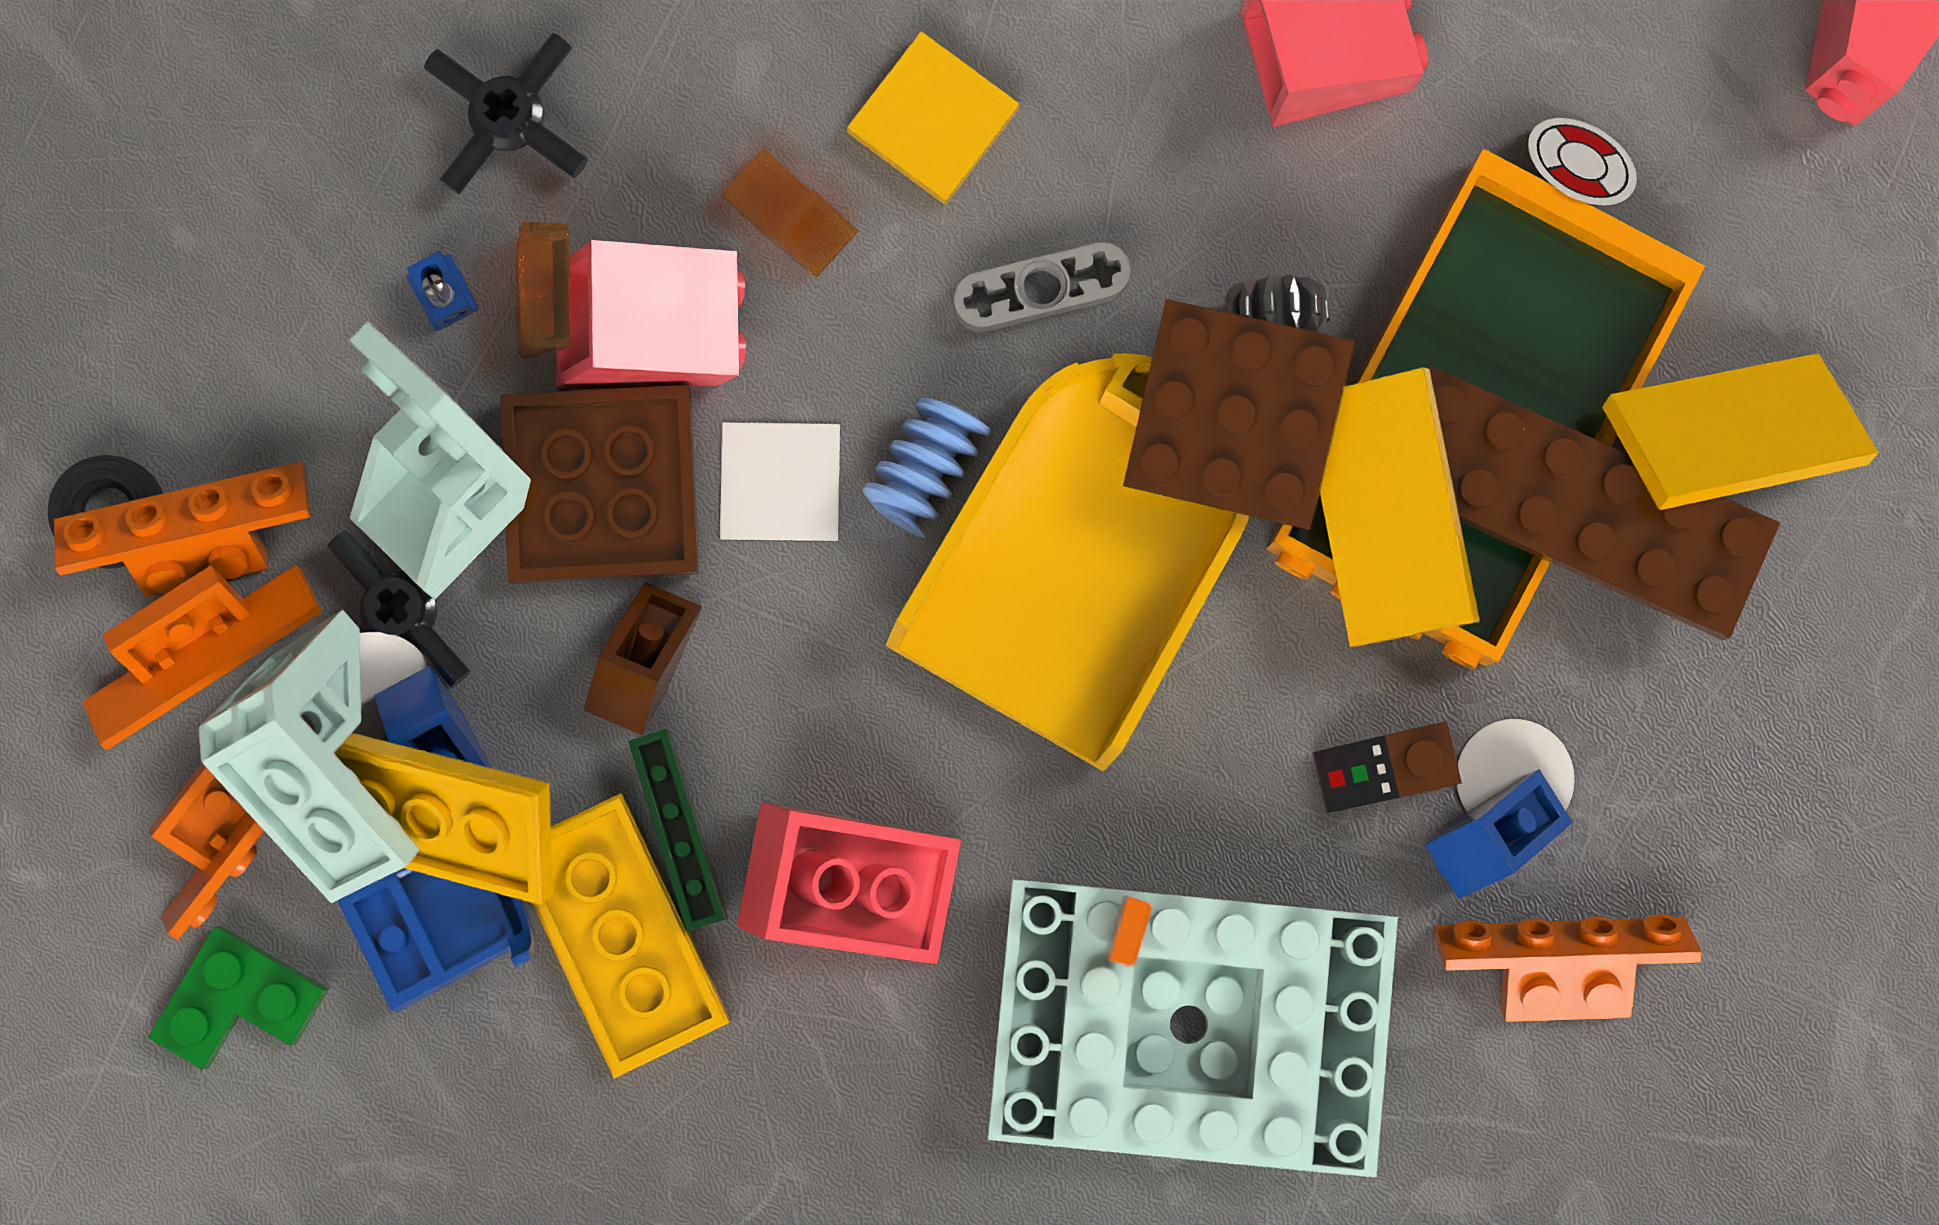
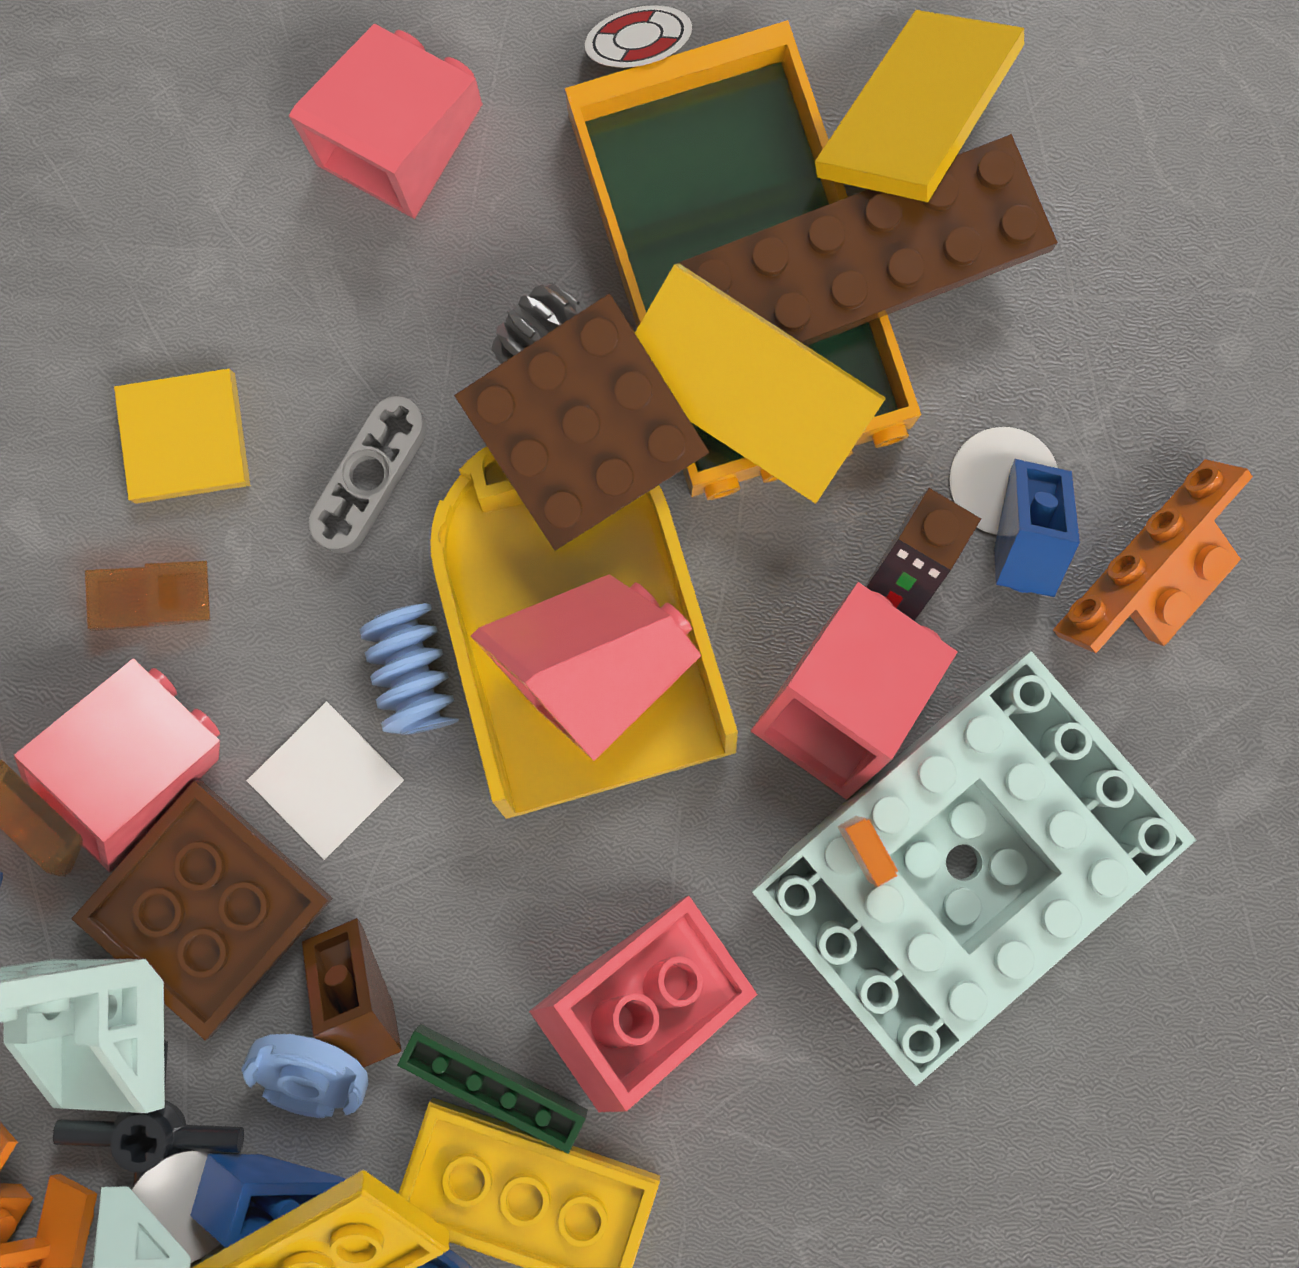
camera: 35 degrees left, 0 degrees up
(557, 680) = (305, 1075): none -> light blue tile
(1070, 590) = (592, 657): none -> coral slope
(1237, 815) = (855, 692): none -> coral slope

